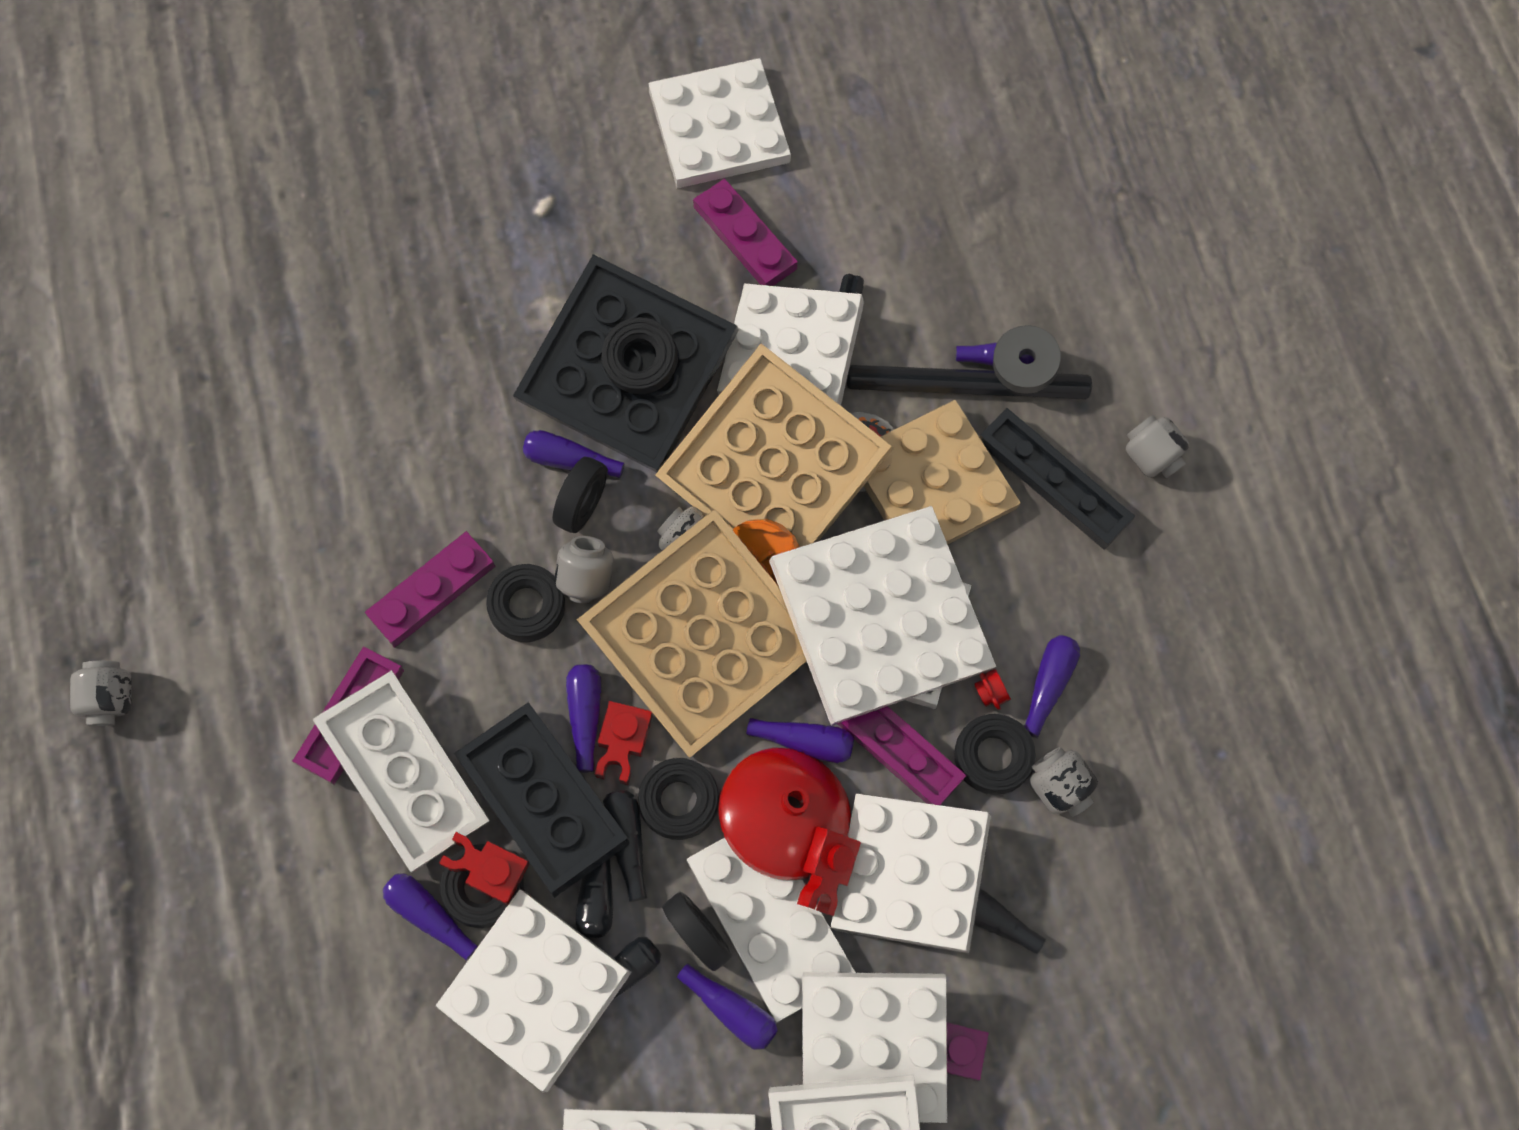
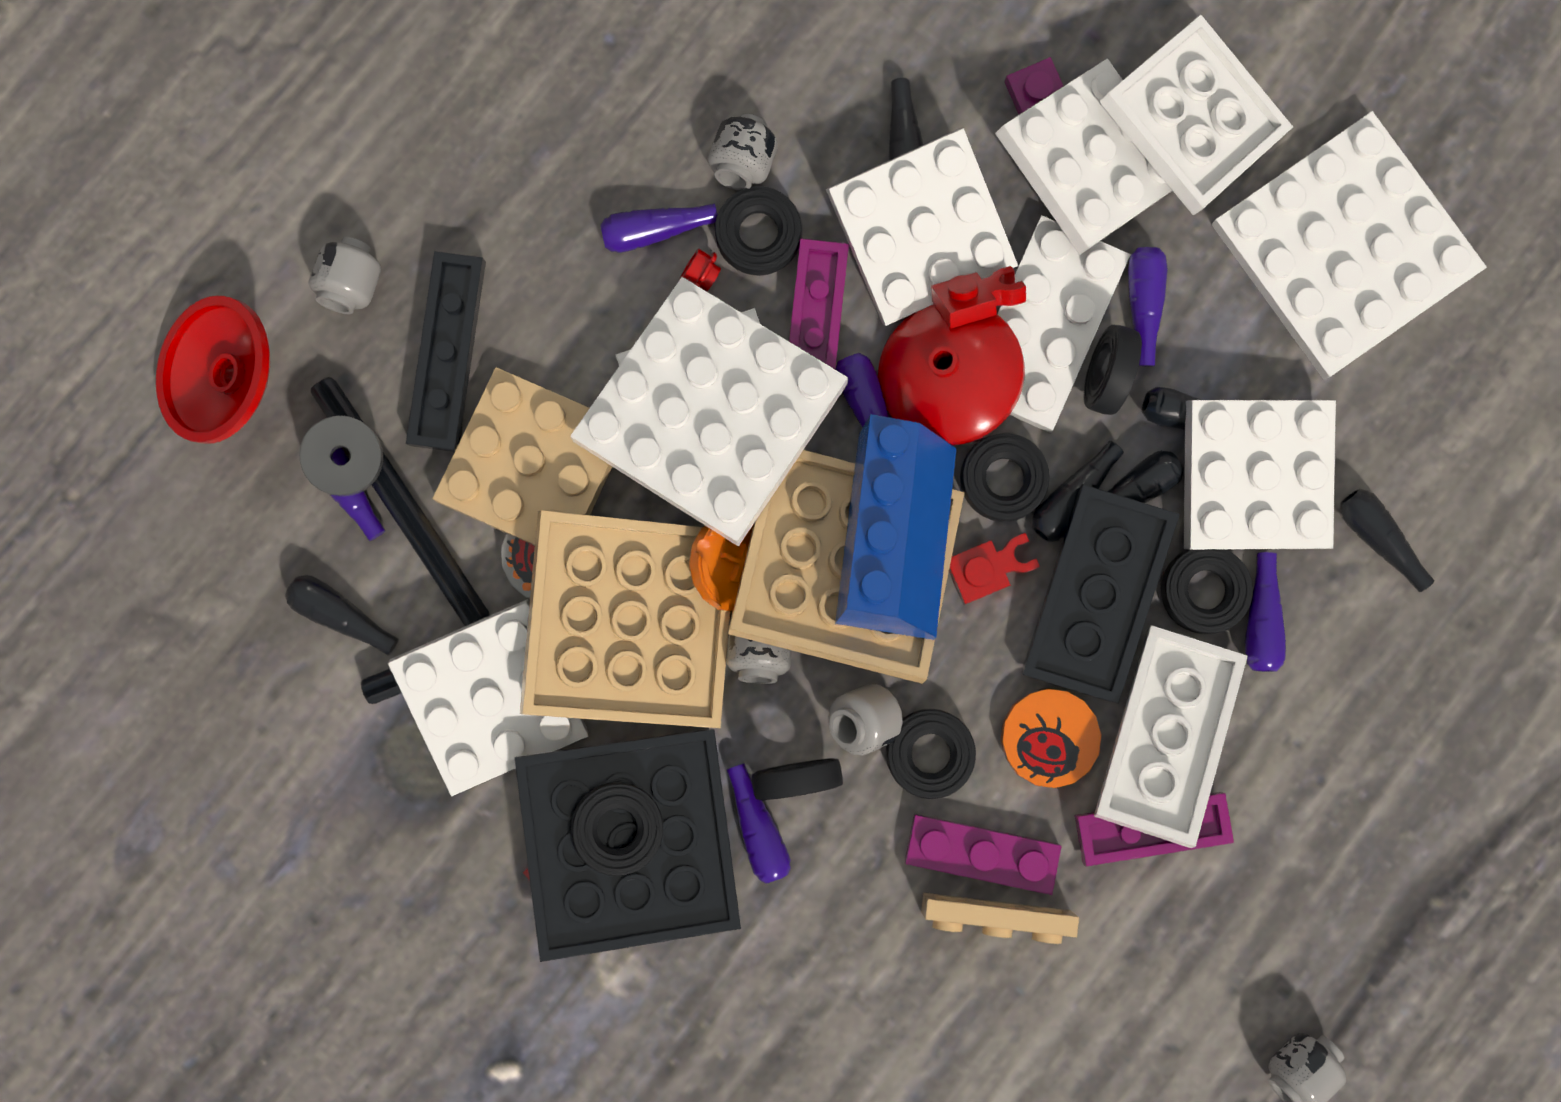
camera: 125 degrees left, 15 degrees up
(380, 565) = (999, 918): none -> tan plate
(420, 1055) = (1378, 529): none -> black piece
(469, 692) = (1051, 738): none -> tile
(491, 870) = (1194, 583): red plate -> none
(583, 702) = (986, 624): dark purple piece -> none
(696, 678) = (897, 529): none -> blue slope
(719, 123) = (278, 964): white plate -> none
(745, 234) = (392, 840): magenta plate -> none
(926, 293) = (330, 609): none -> black piece
(1145, 319) = (212, 369): none -> red dish

